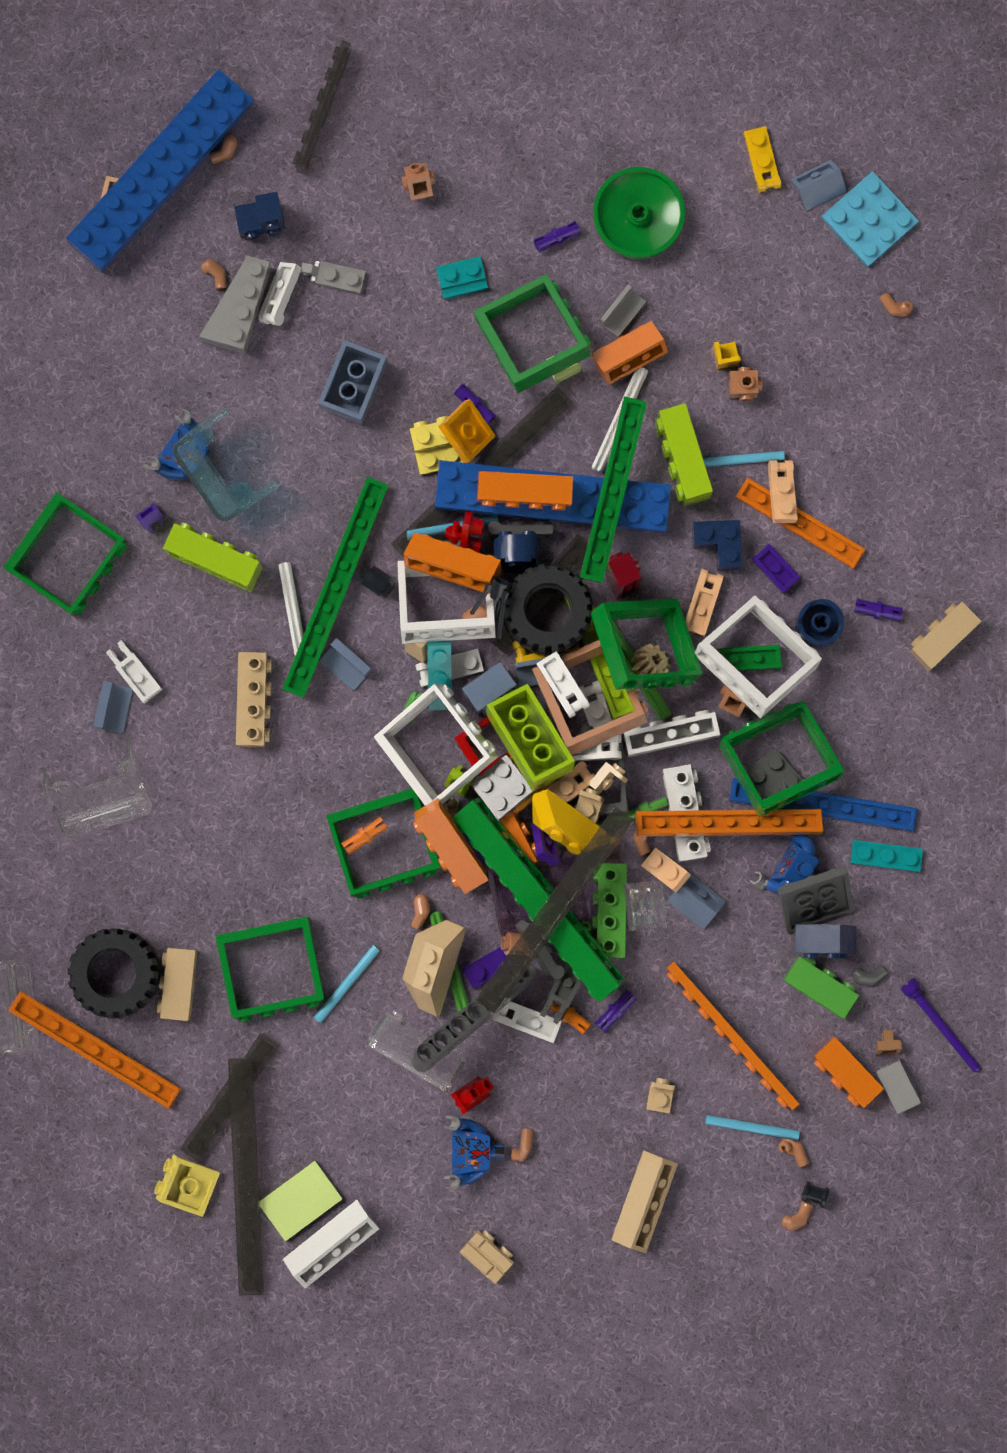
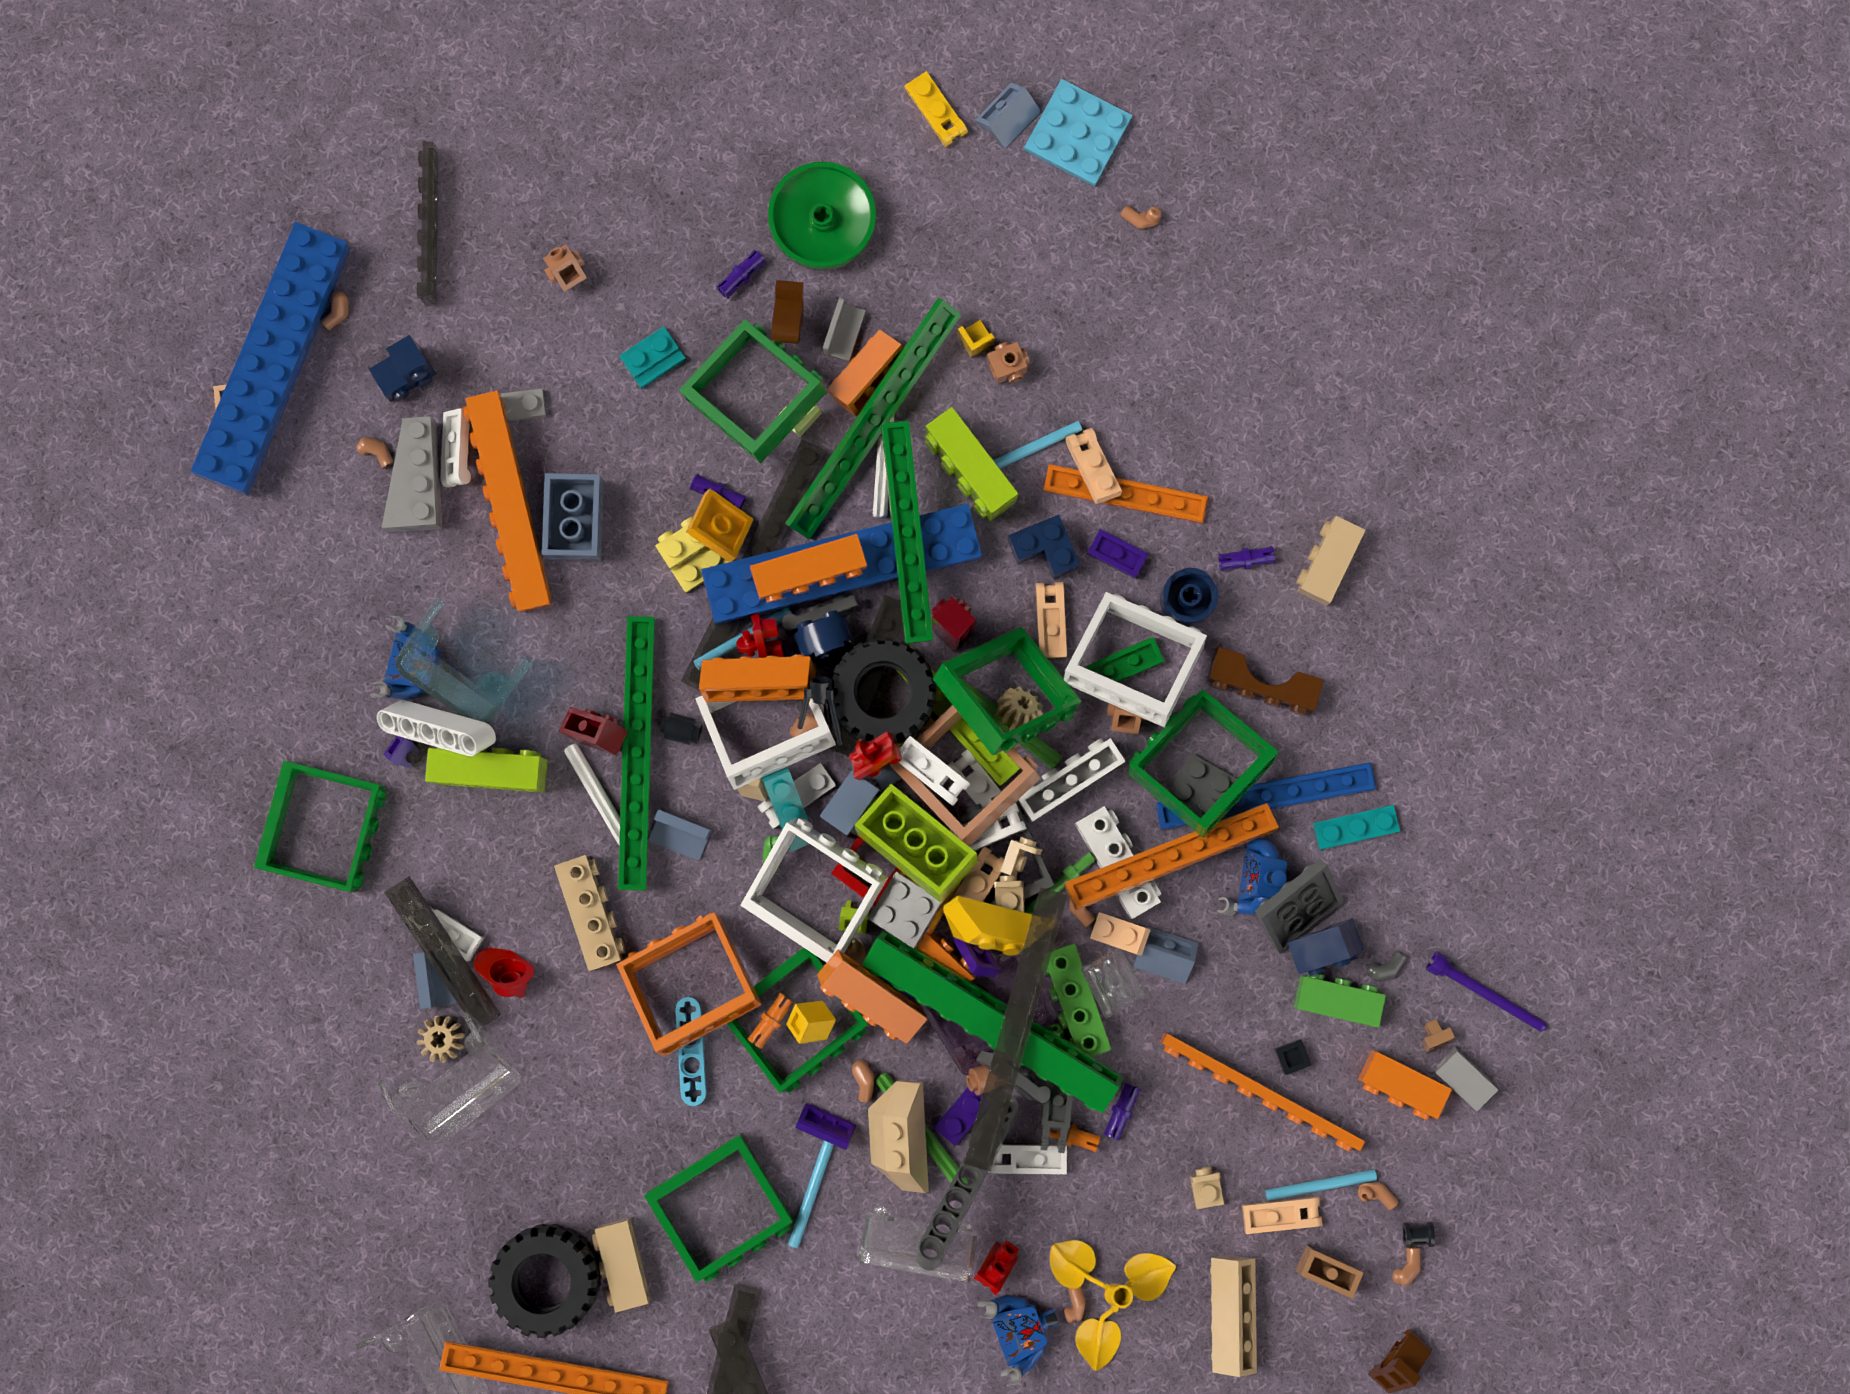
camera: 25 degrees left, 0 degrees up
(107, 759) = (450, 1040): none -> tan gear
(126, 686) = (441, 951): none -> clear smoke plate
(169, 721) = (504, 971): none -> red piece
(186, 509) = (436, 727): none -> white beam
(289, 837) = (687, 1051): none -> medium azure beam
(306, 351) = (508, 501): none -> orange brick
(308, 557) = (593, 730): none -> dark red brick
(313, 818) = (706, 1023): none -> orange window
(377, 935) = (825, 1126): none -> dark purple plate
(396, 848) = (811, 1022): none -> yellow panel
(522, 656) = (872, 756): none -> red hips
(583, 281) = (788, 312): none -> reddish brown tile
(587, 1148) = (1147, 1277): none -> yellow plant
(626, 385) = (877, 410): none -> green plate
(711, 1138) = (1281, 1215): none -> light nougat plate
(733, 1195) = (1329, 1271): none -> medium nougat brick
(763, 1289) = (1402, 1363): none -> reddish brown tile
(766, 1017) = (1292, 1057): none -> black plate
(832, 695) = (1231, 671): none -> reddish brown arch

